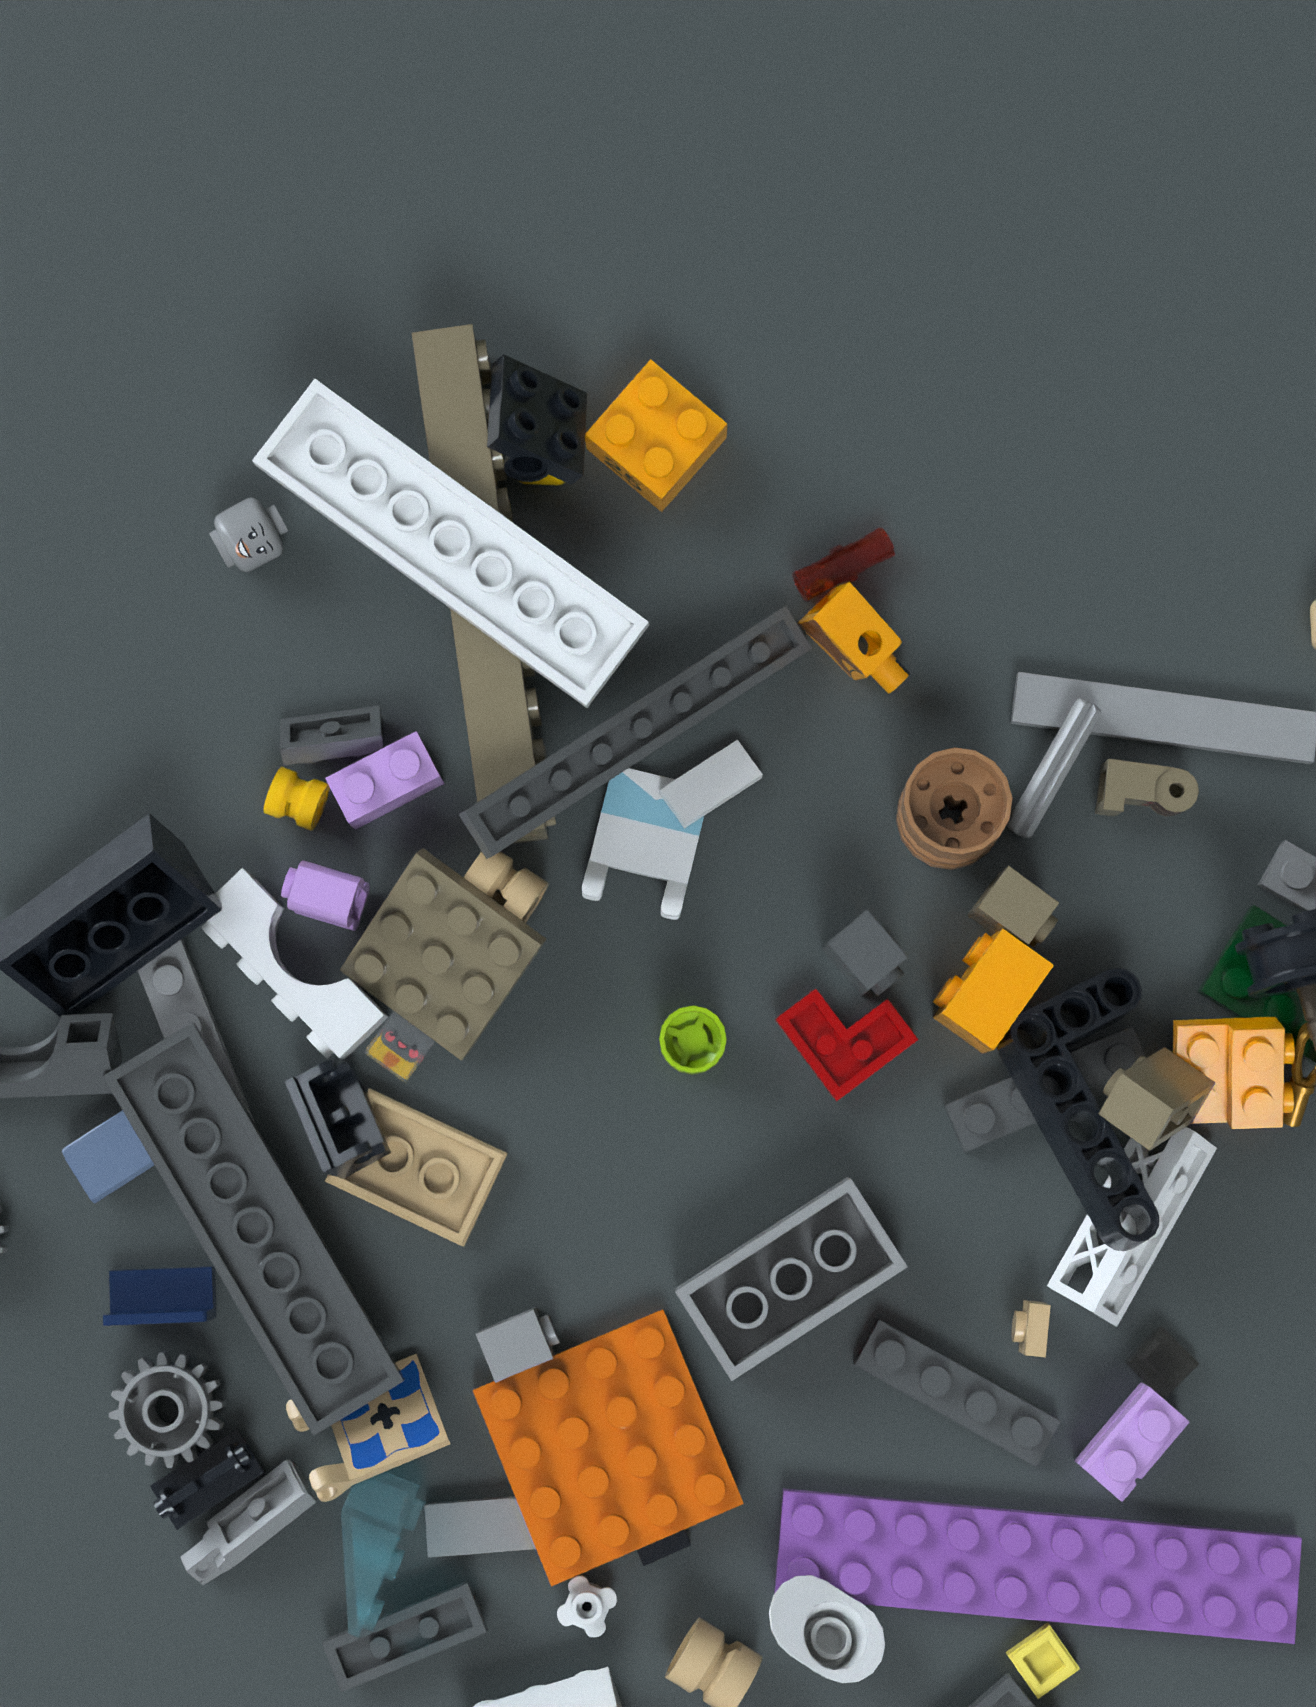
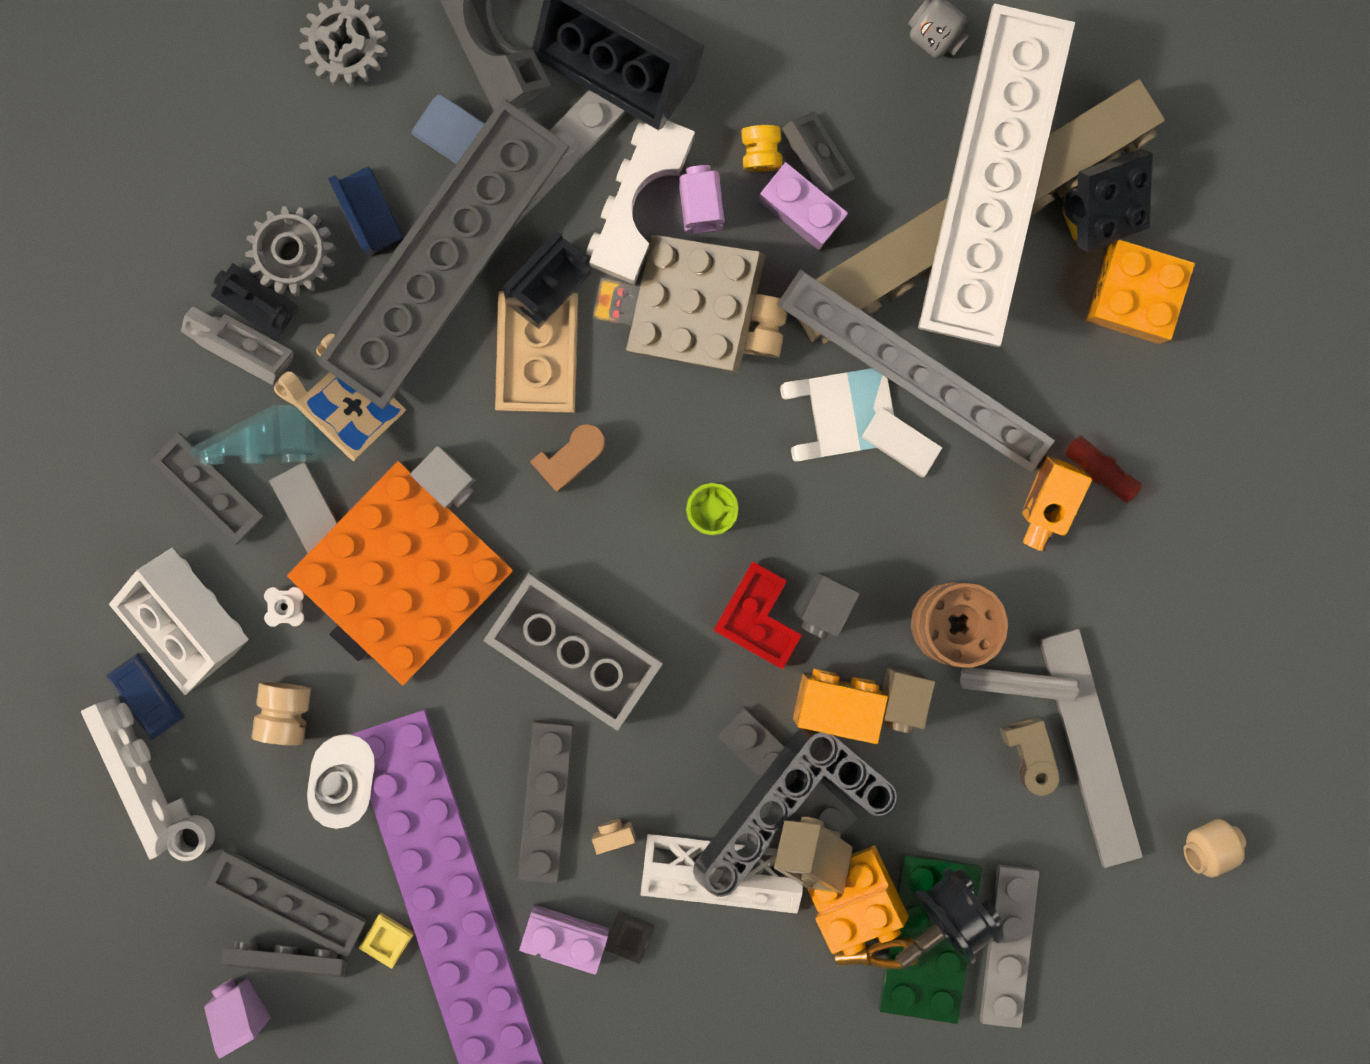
camera: 70 degrees right, 5 degrees up
(555, 1161) = (584, 447): none -> medium nougat leg

